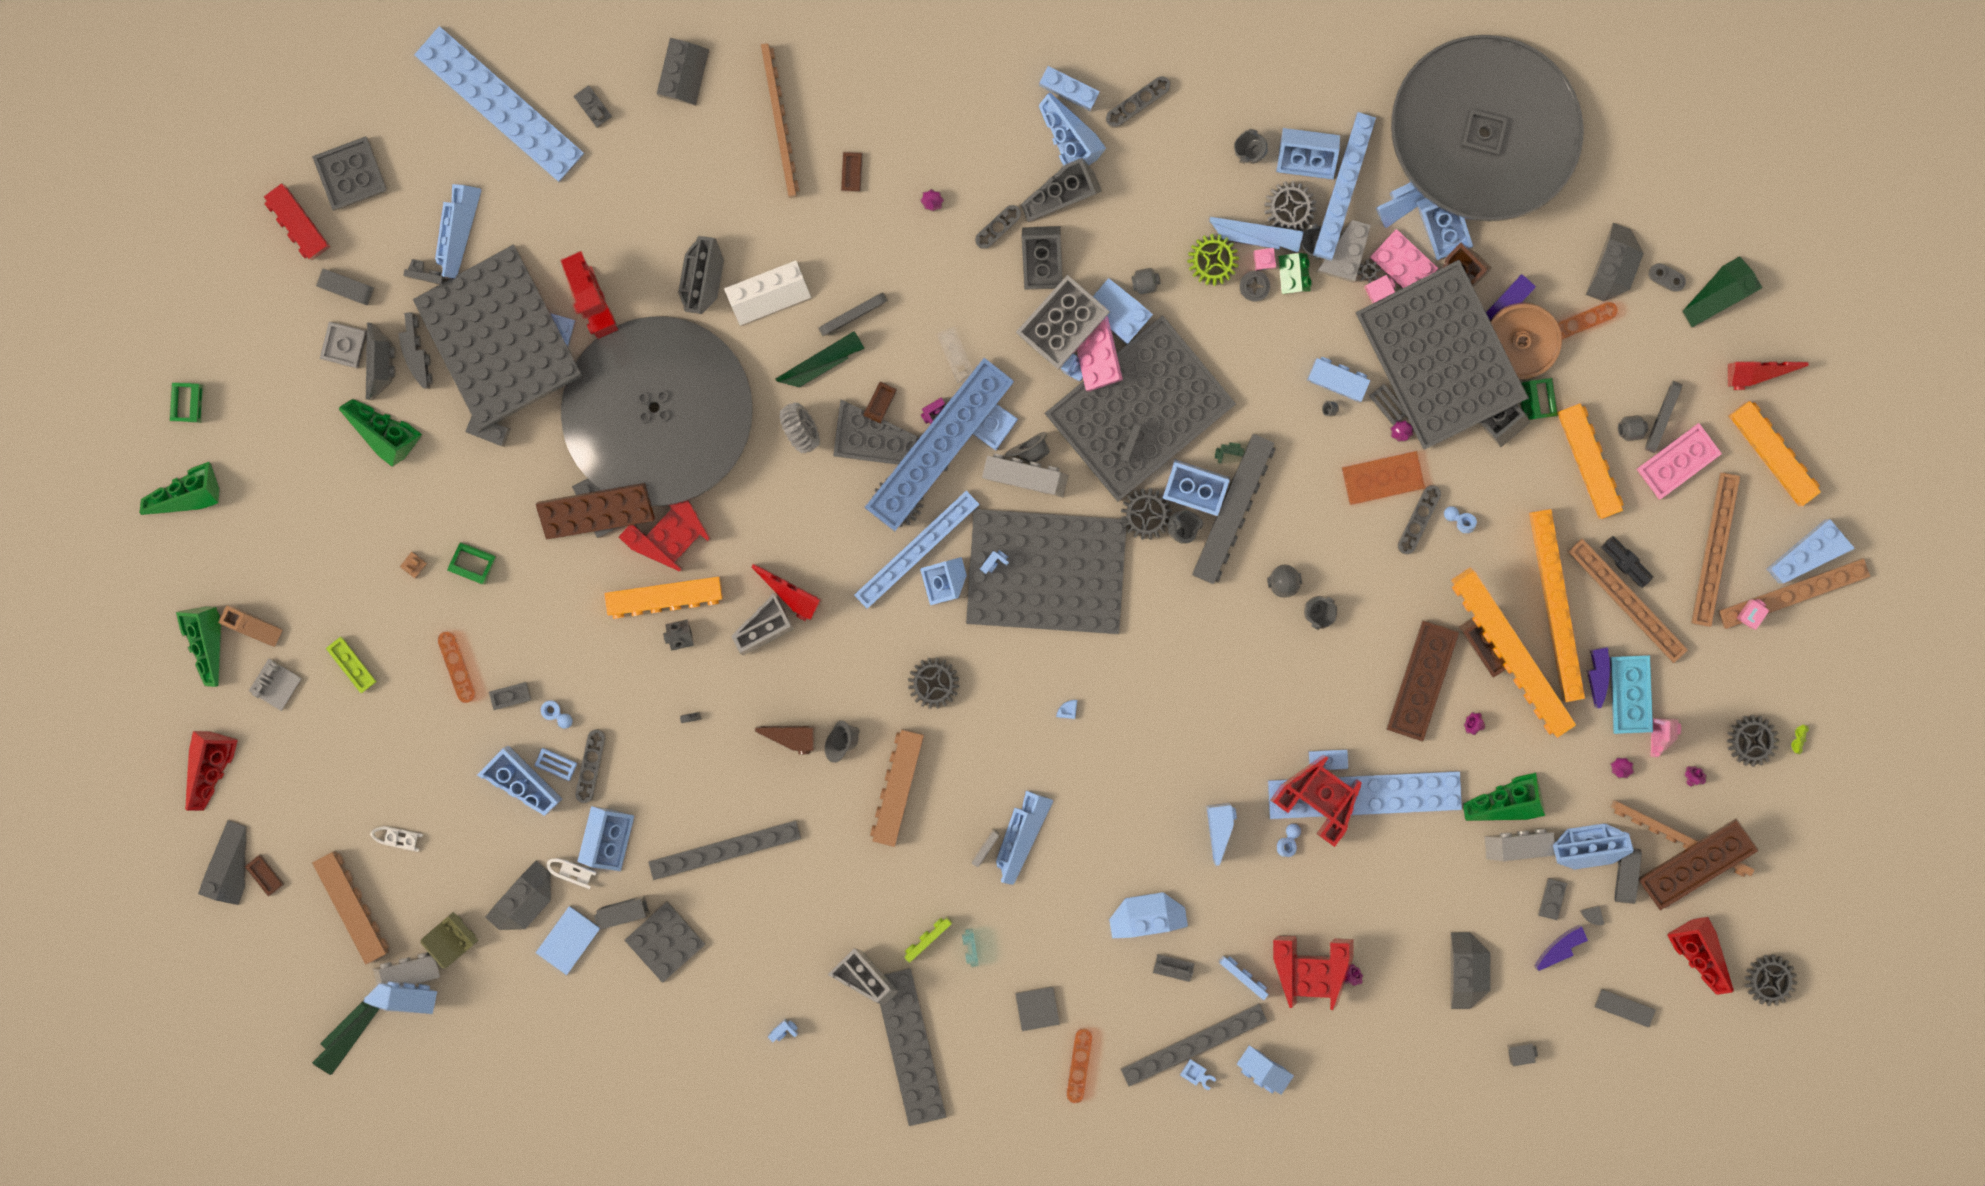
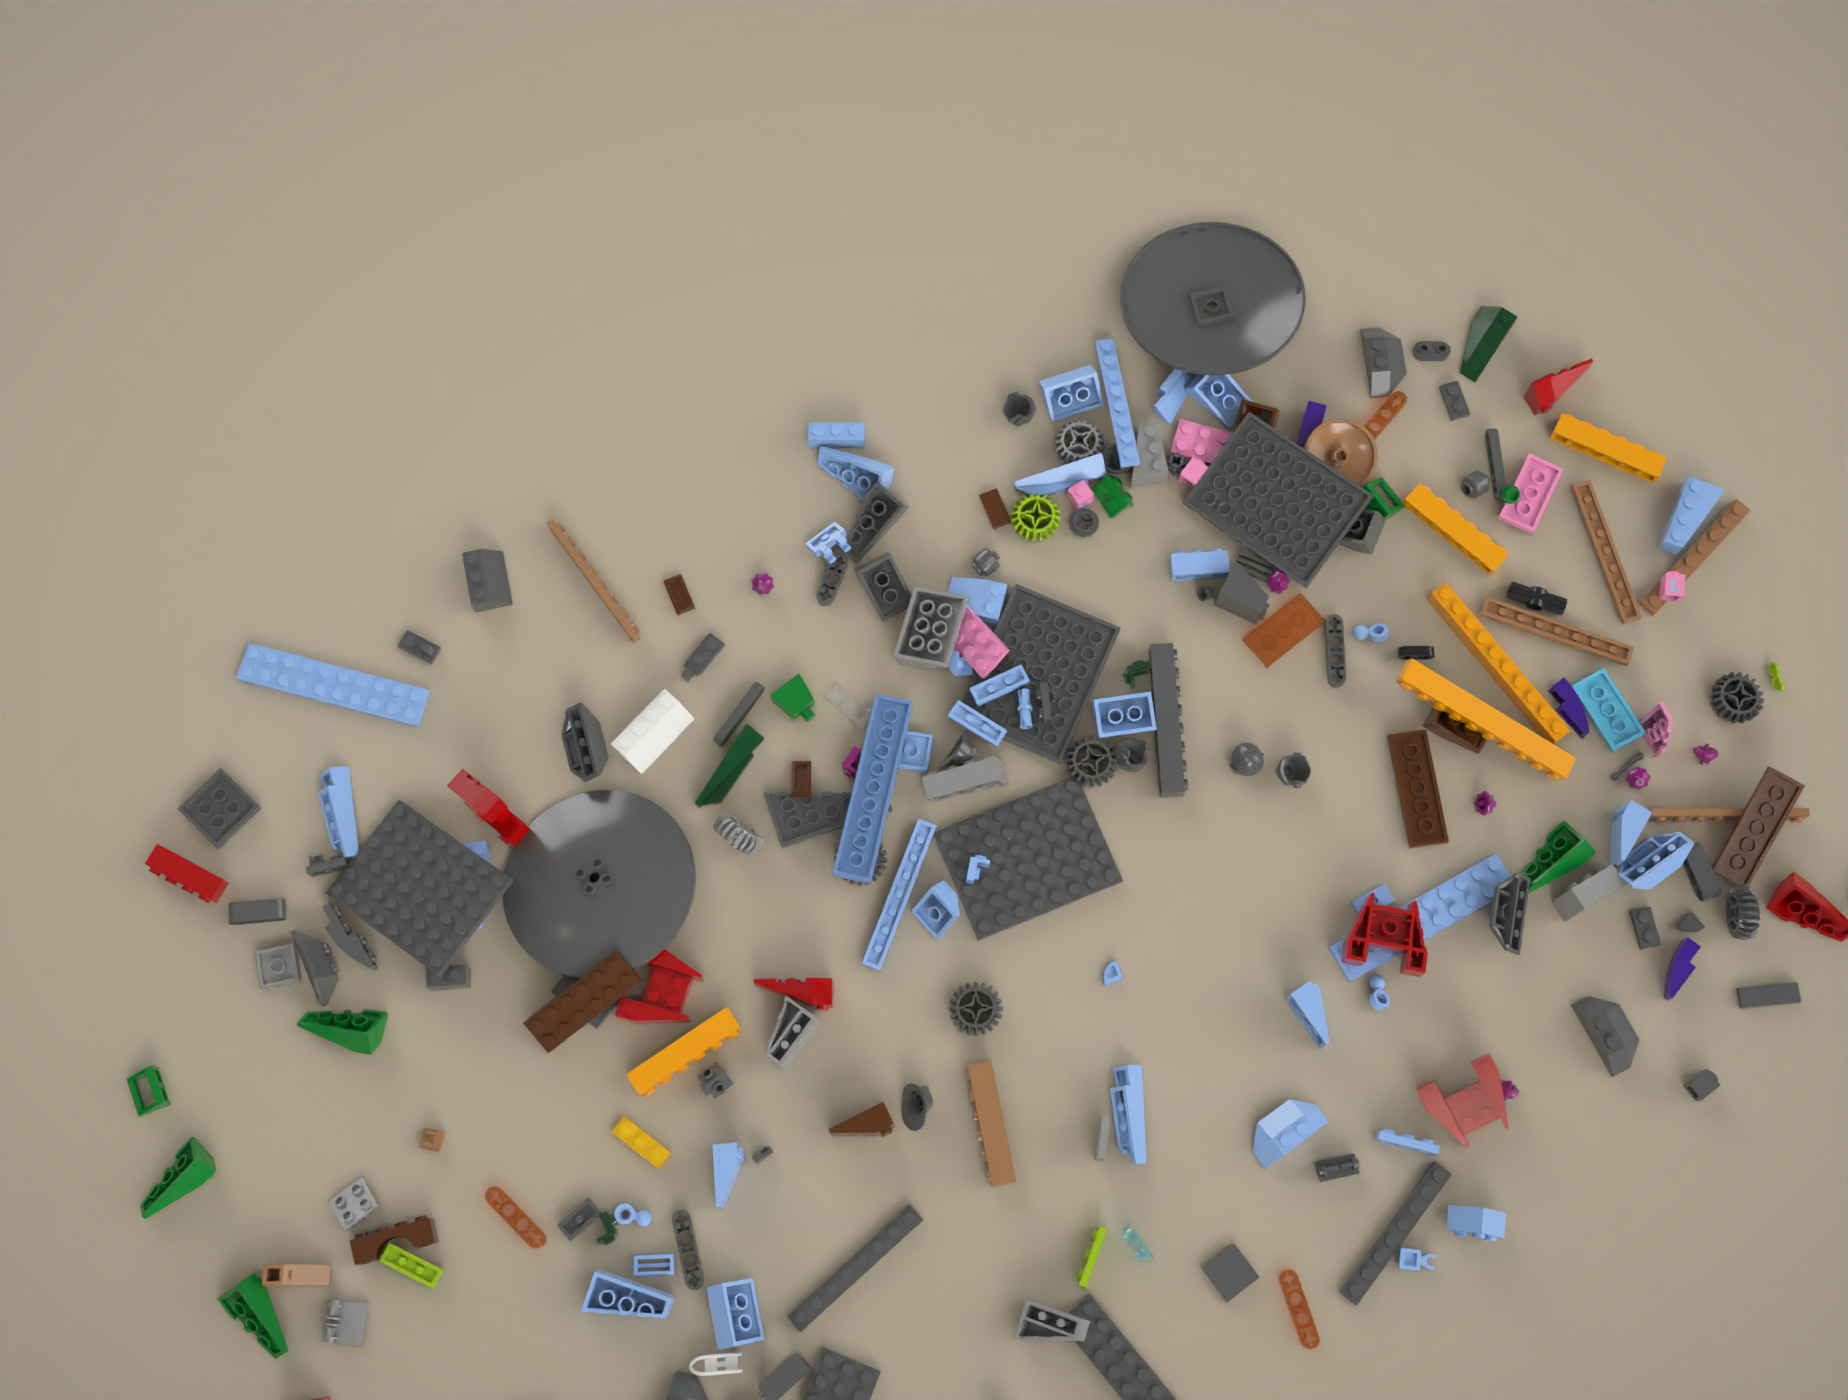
camera: 25 degrees left, 15 degrees down
(323, 588) = (354, 1204): none -> light grey hinge
(369, 641) = (369, 1247): none -> reddish brown arch
(482, 579) = (492, 1121): green tile -> none
(534, 711) = (610, 1225): none -> clear green bracket
(591, 655) = (641, 1142): none -> yellow plate
(655, 712) = (727, 1164): none -> light blue slope
(845, 242) = (702, 656): none -> dark grey hinge
(909, 325) = (794, 699): none -> green torso
(1011, 186) = (826, 539): none -> light blue plate
(1060, 431) = (977, 723): none -> light blue plate
(1098, 405) = (999, 685): none -> light blue plate
(1110, 438) = (1024, 708): none -> light blue pin
(1140, 105) = (902, 420): dark grey beam -> none
(1180, 231) = (995, 508): none -> reddish brown tile
(1361, 429) = (1243, 596): none -> dark grey slope
(1438, 830) = (1509, 911): none -> dark grey wedge
(1489, 558) = (1416, 652): none -> black beam
(1583, 809) = (1625, 830): none -> light blue slope
(1605, 755) = (1640, 756): none -> dark grey hinge
(1641, 930) = (1742, 913): none -> dark grey gear
(1657, 455) = (1510, 494): none -> green plate
(1660, 336) = (1454, 400): none -> dark grey plate

